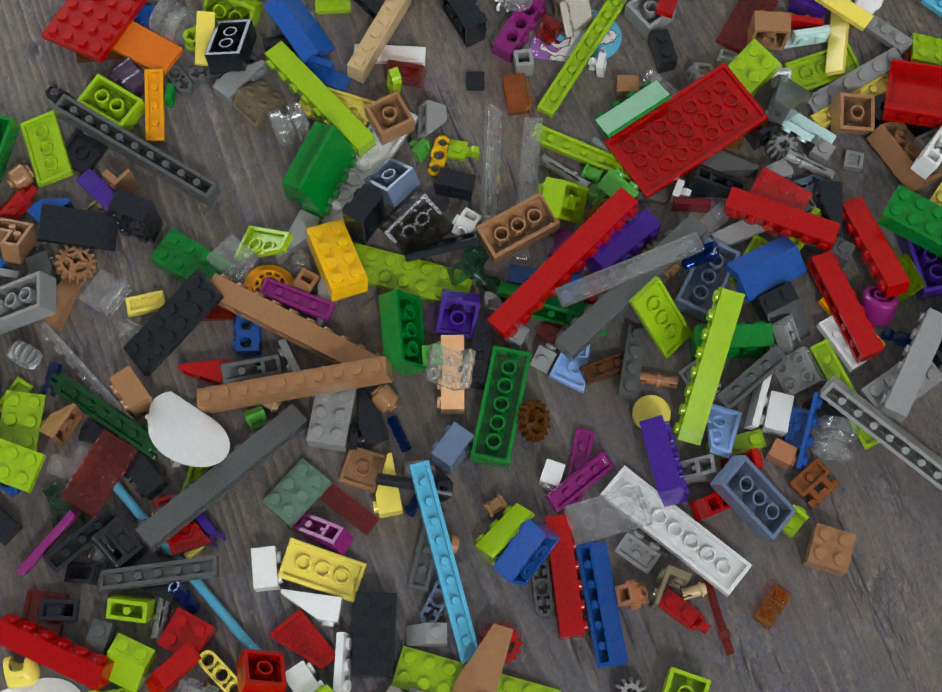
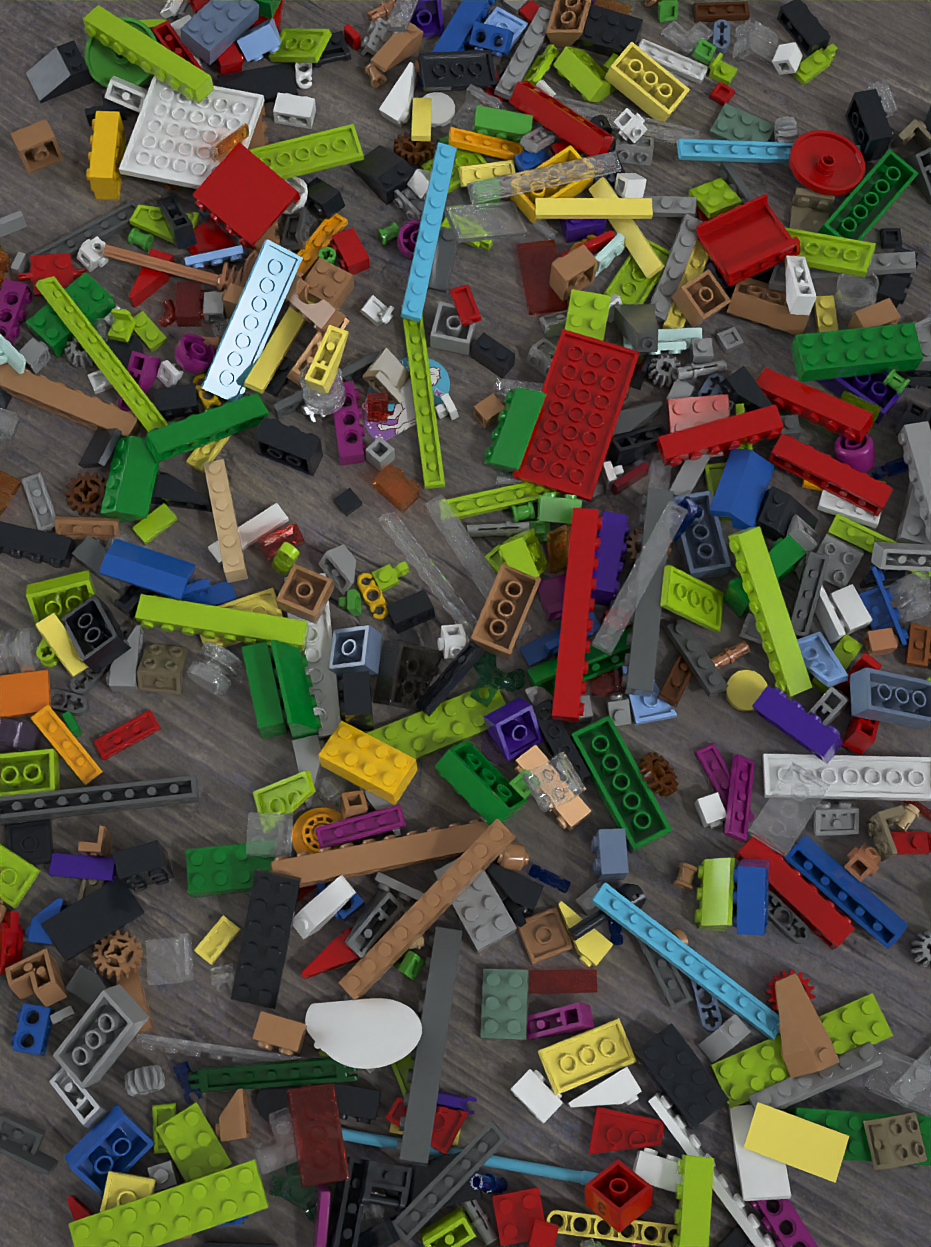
camera: 40 degrees left, 0 degrees up
(200, 129) = (126, 735): none -> red tile
(226, 332) = (323, 907): none -> white slope

